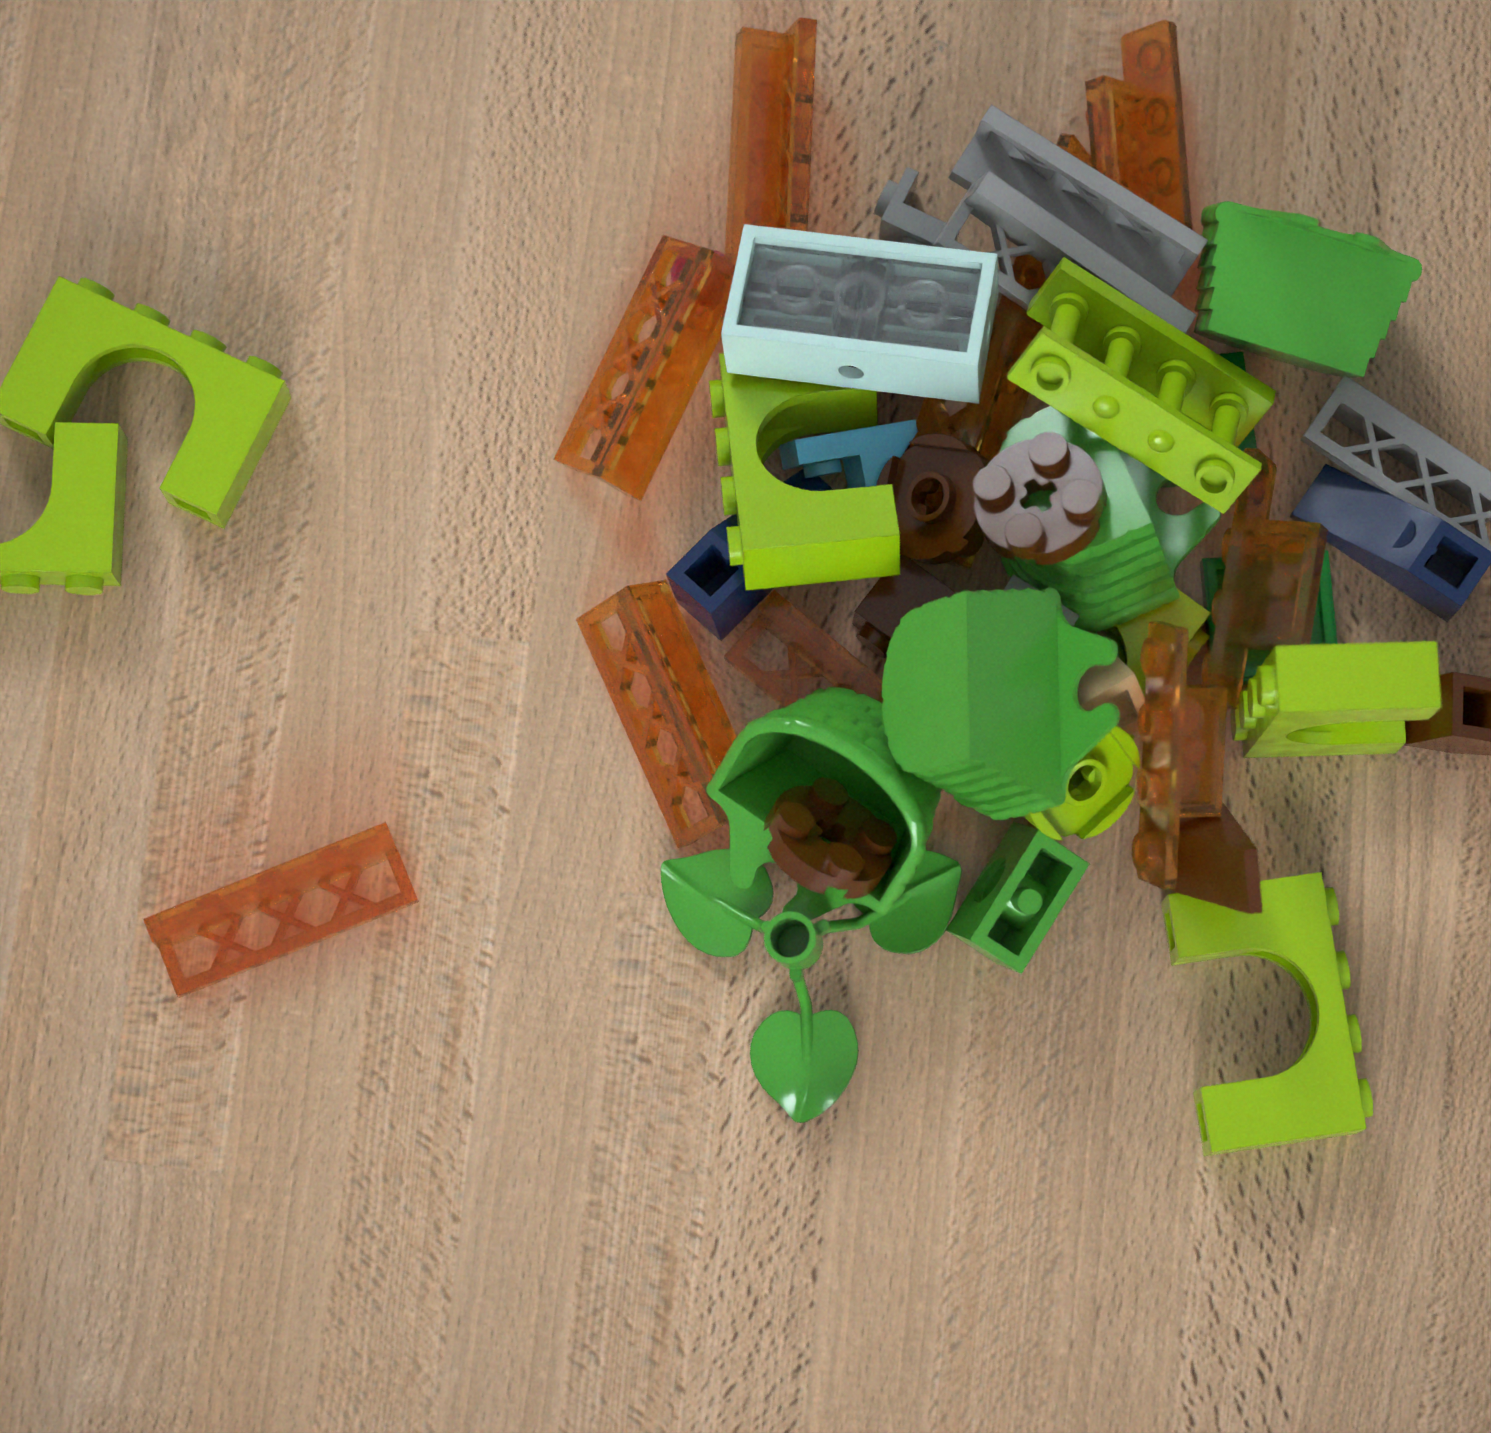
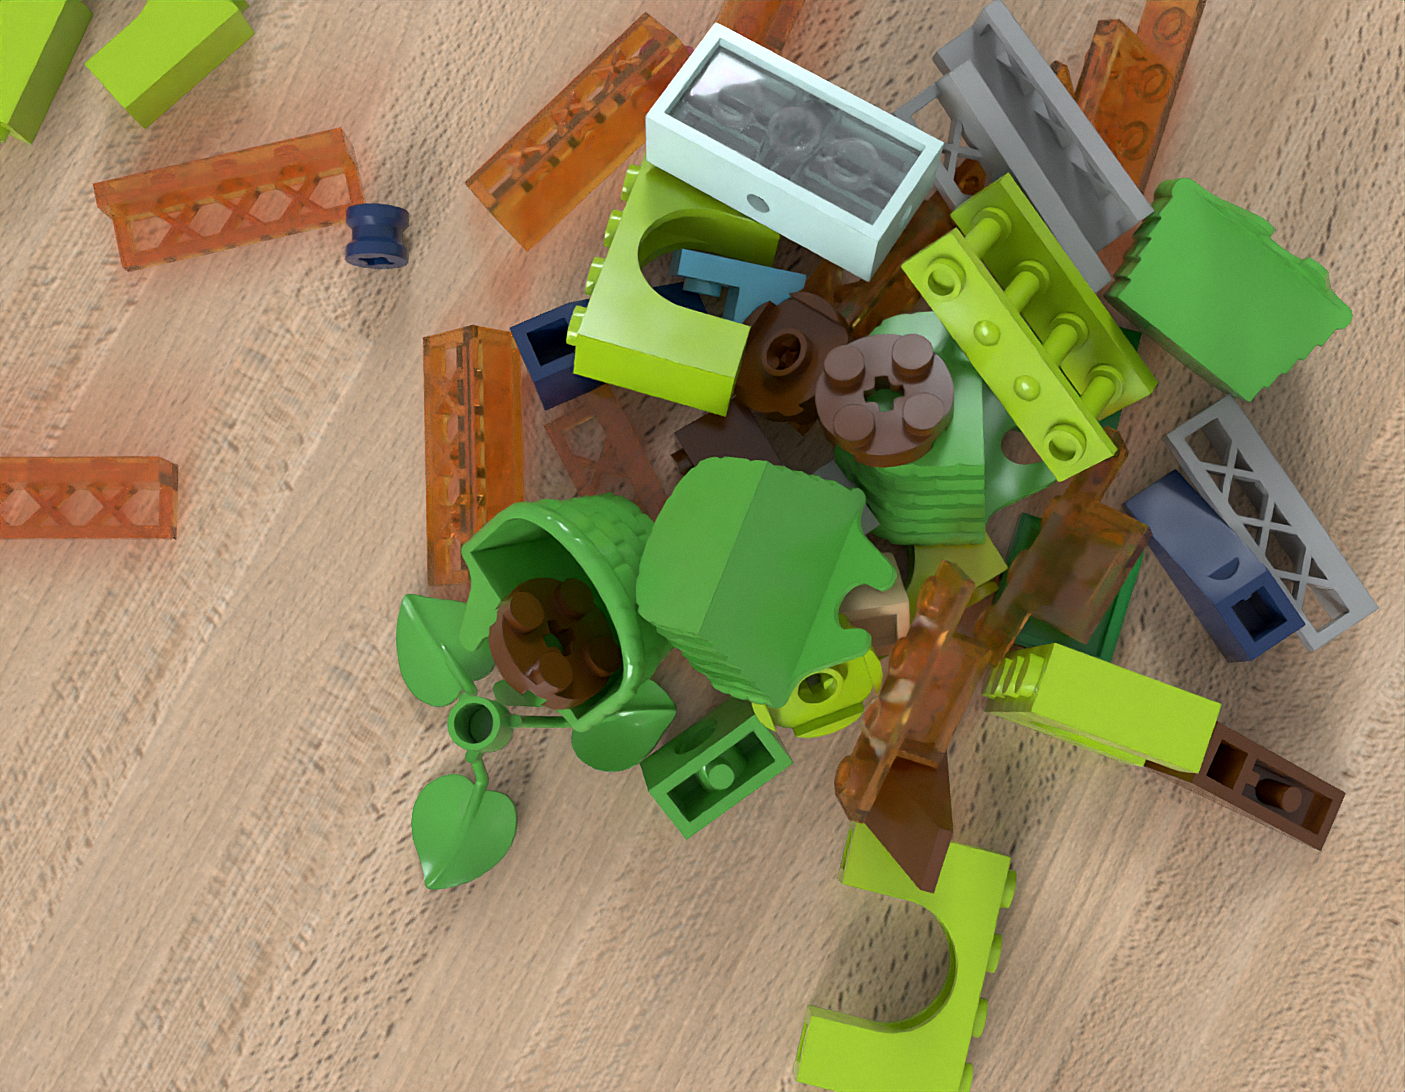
camera: 25 degrees right, 5 degrees up
(331, 542) = (225, 178): none -> clear orange fence
(496, 541) = (377, 236): none -> dark blue wheel
(902, 221) = (872, 77): light grey bracket -> none

